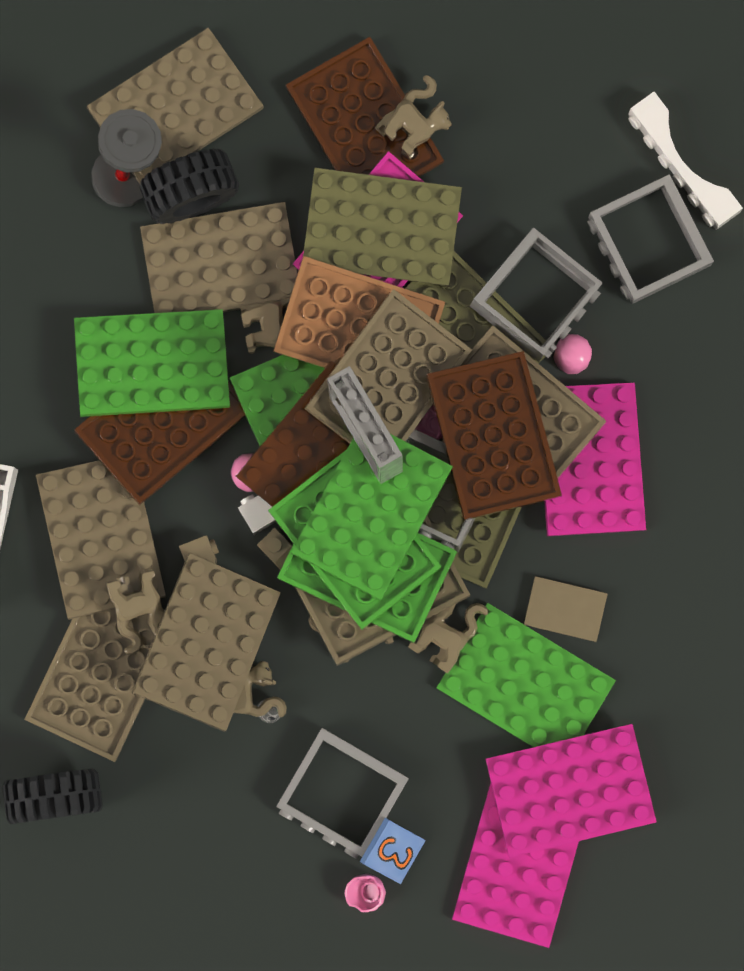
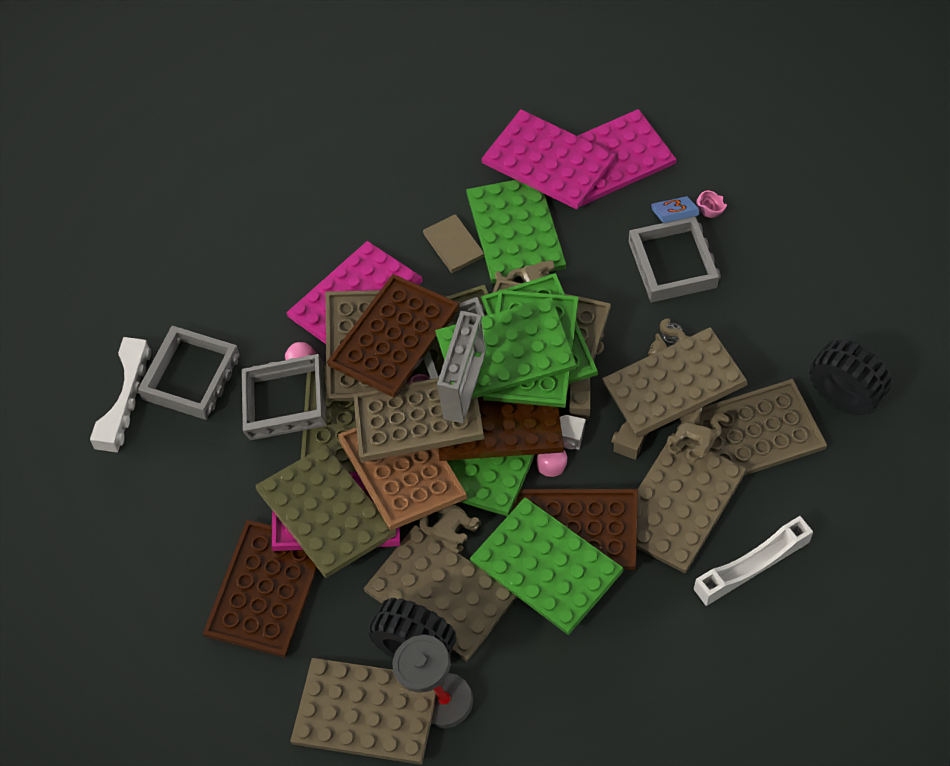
camera: 135 degrees left, 25 degrees down
(412, 121) = (239, 557): dark tan animal -> none

